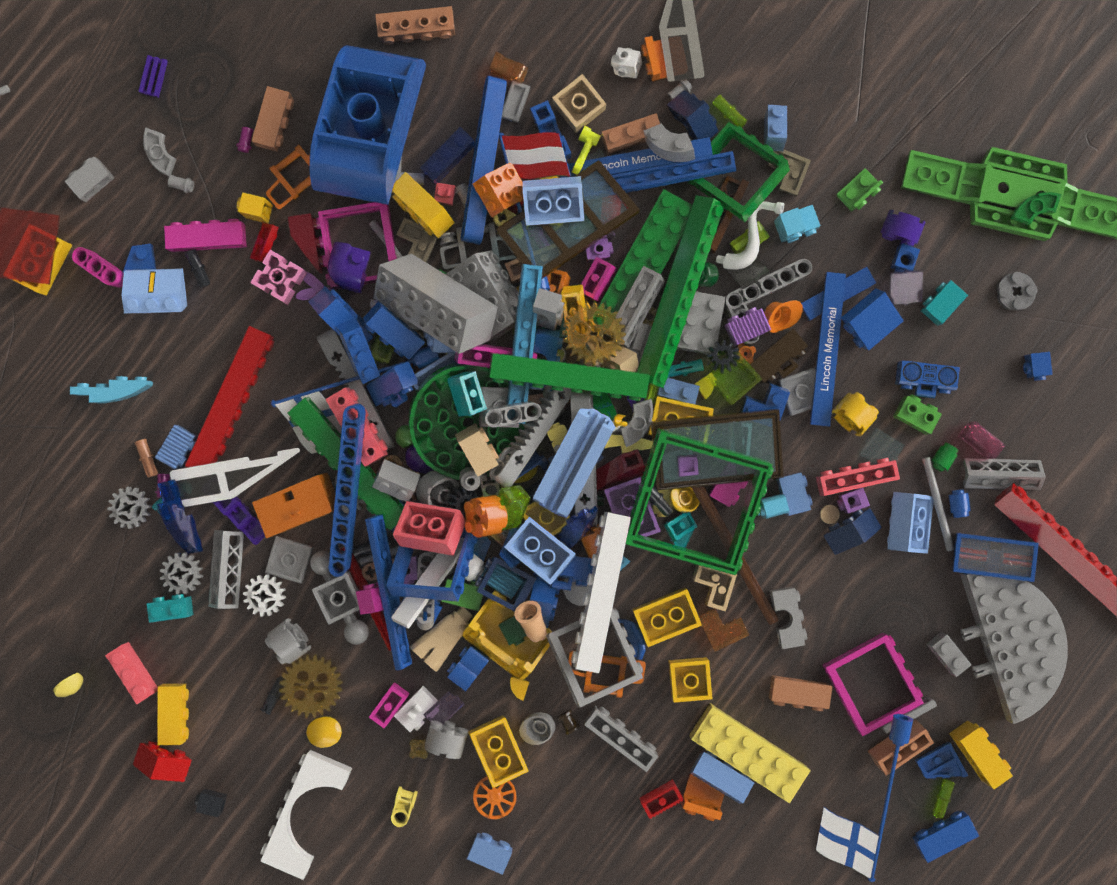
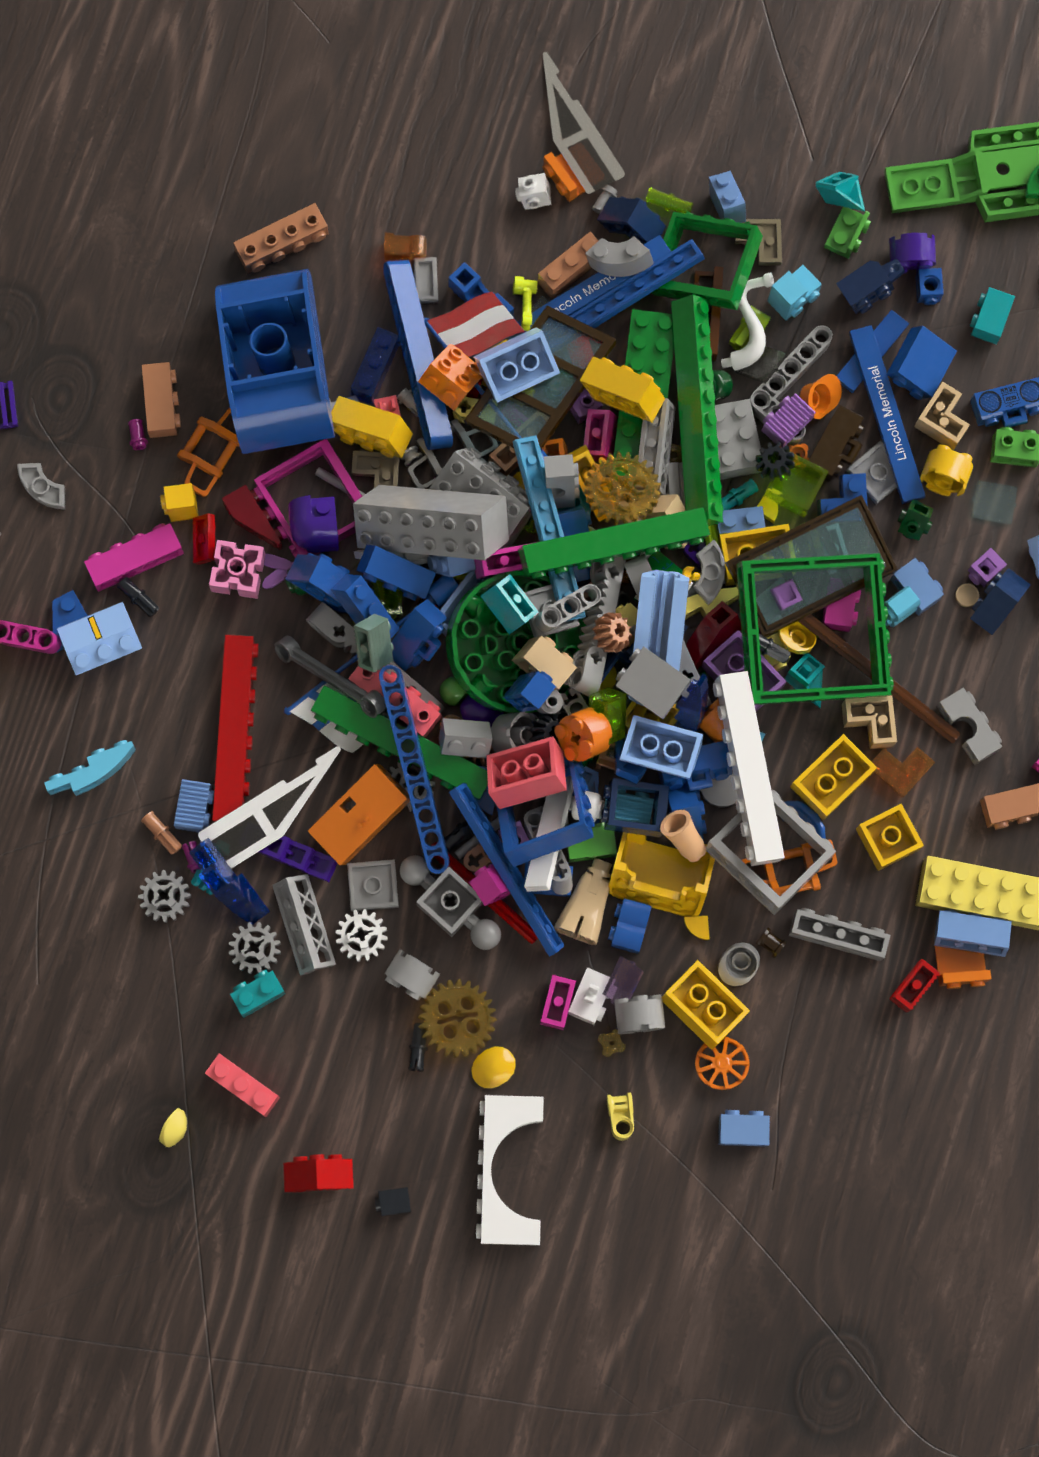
camera: 25 degrees left, 10 degrees down
(172, 714) = (308, 1115): yellow brick -> none
(180, 183) = (82, 510): light grey pin -> none
(295, 358) = (370, 702): none -> dark grey piece
(351, 382) = (373, 643): none -> sand green brick
(455, 468) = (530, 691): none -> blue brick
(512, 631) = (665, 861): dark green brick -> none
(539, 445) = (612, 632): none -> nougat gear
(553, 498) = (652, 682): none -> light grey brick
(579, 103) = (499, 254): tan brick -> none
(627, 253) = (622, 388): none -> yellow brick
(814, 442) = (915, 520): none -> dark green brick
(857, 241) = (870, 284): none -> dark blue hinge
(857, 478) = (978, 541): coral brick -> none
(865, 369) = (939, 421): none -> tan brick
(869, 155) = (841, 190): none -> teal slope
(906, 287) = (944, 314): clear purple piece -> none

